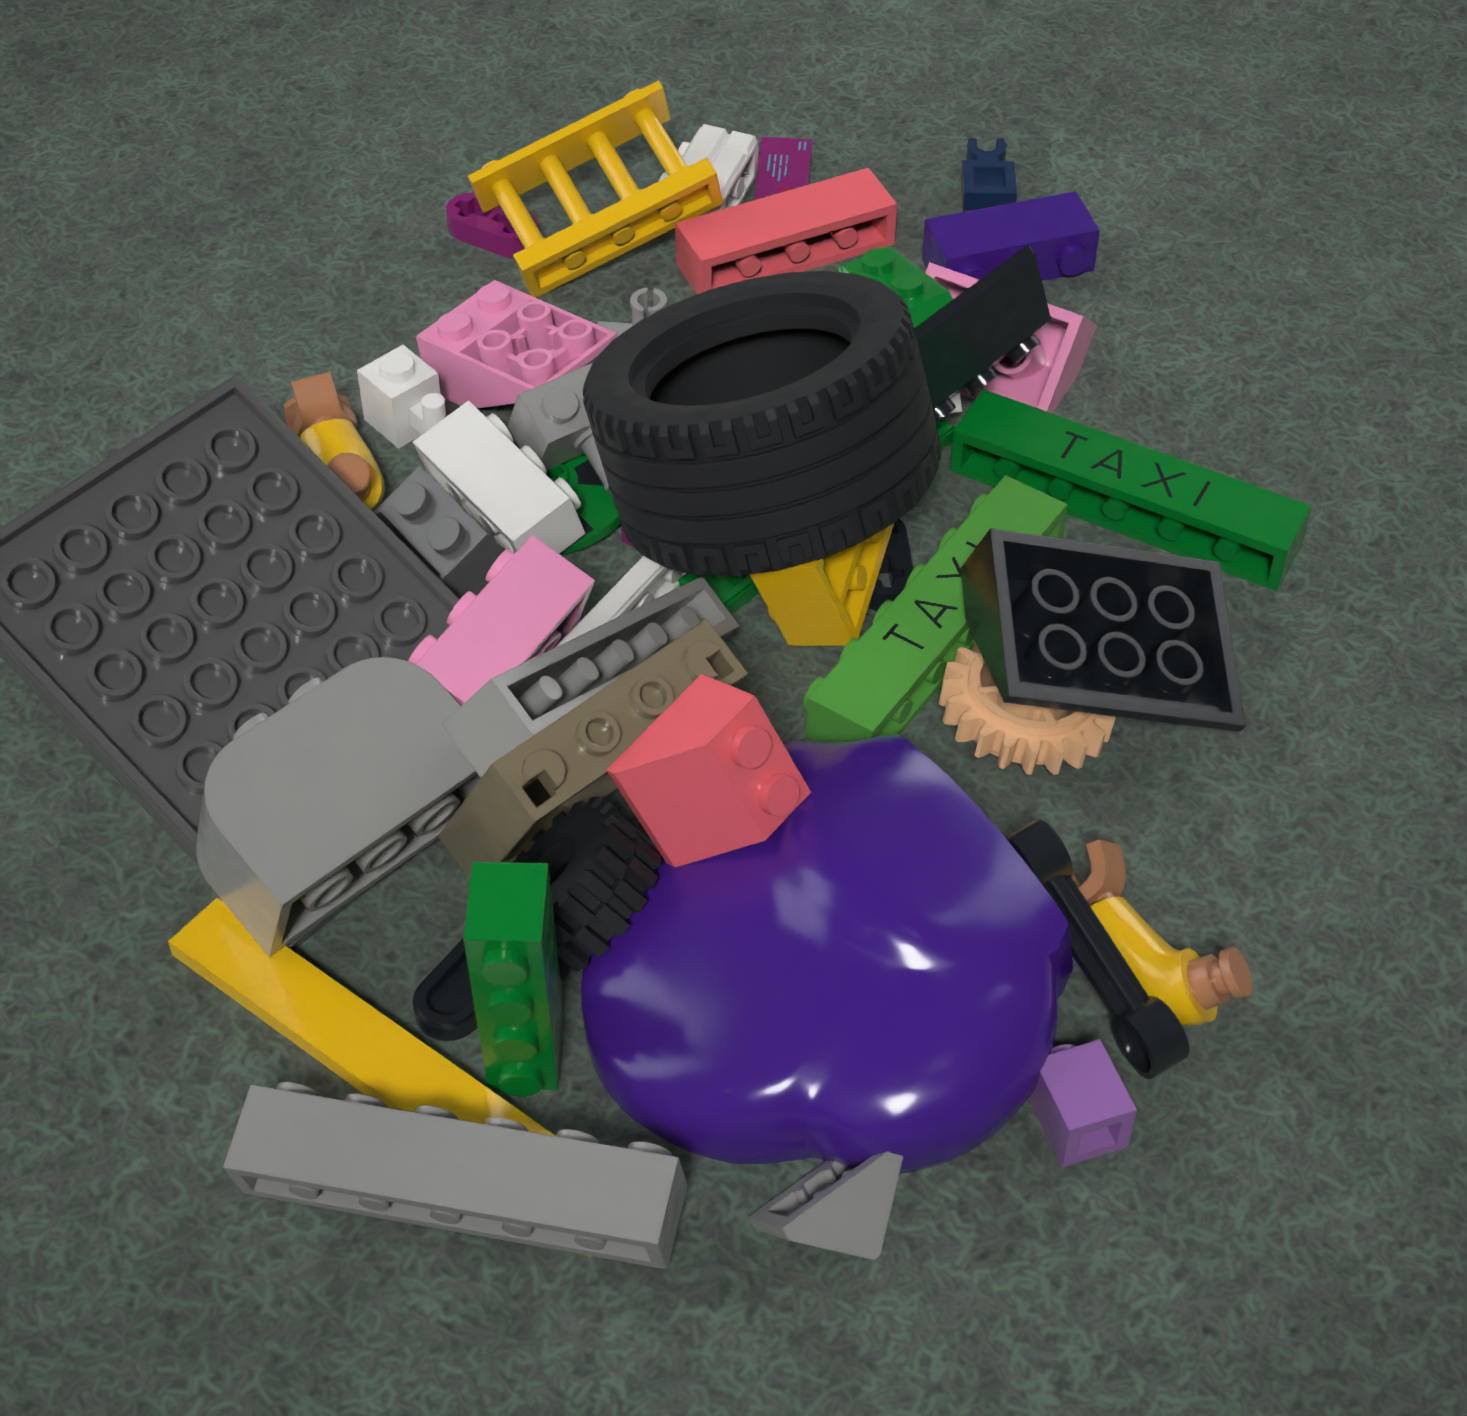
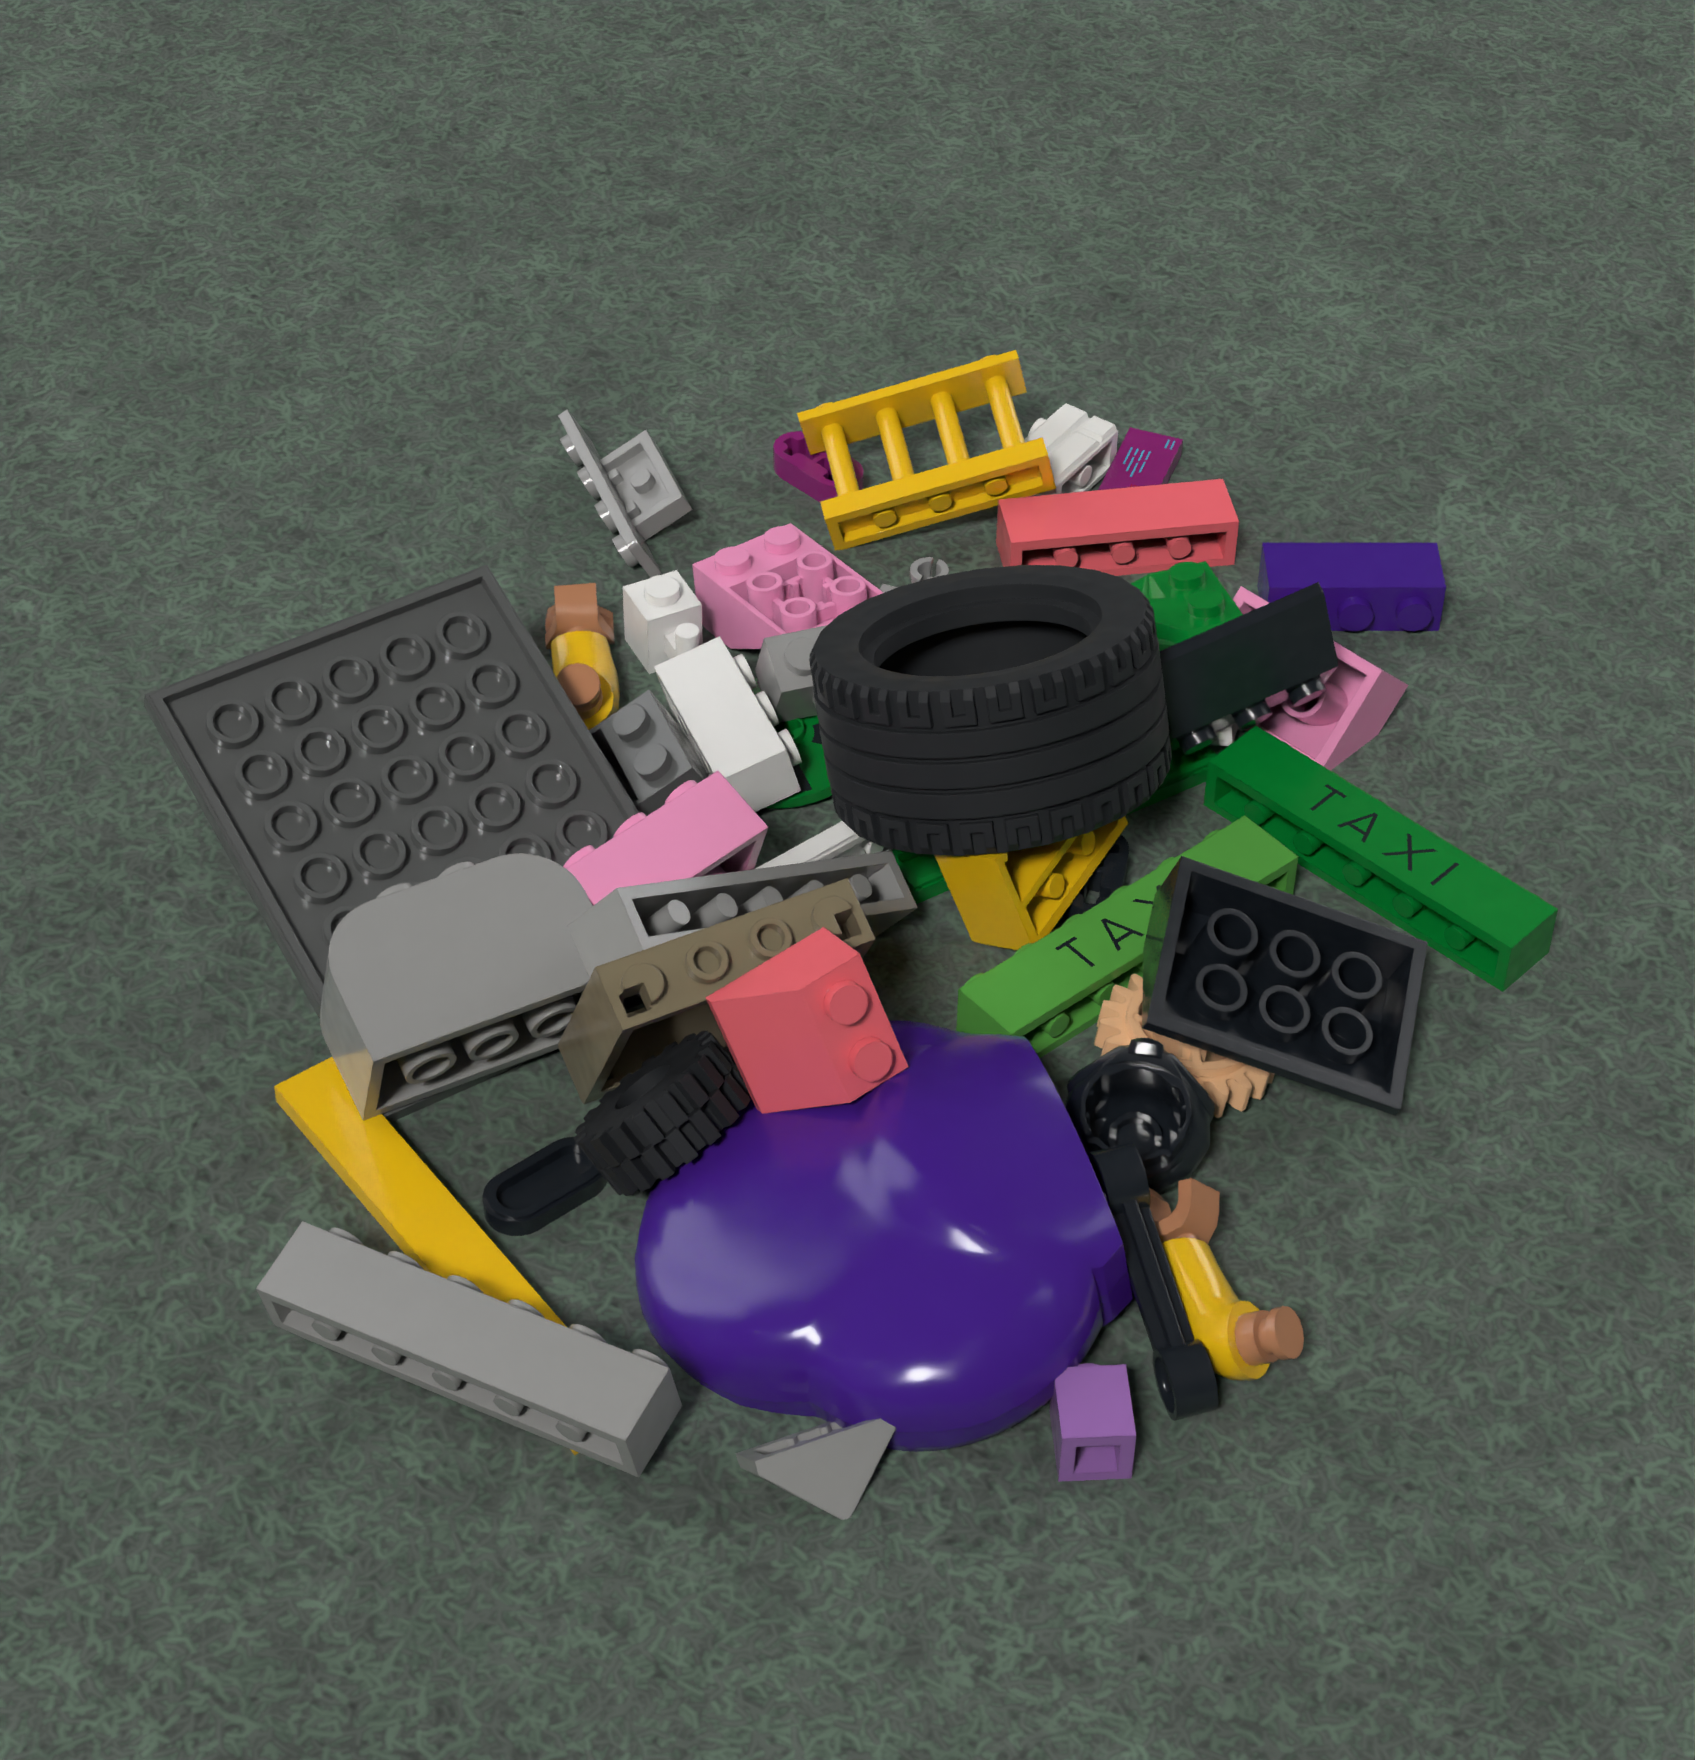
camera: 15 degrees right, 5 degrees down
(332, 272) = (634, 489): none -> light grey bracket
(515, 975) = (568, 1173): green brick -> none
(987, 177) = (1356, 512): dark blue plate -> none
(1024, 774) = (1143, 1099): none -> black helmet

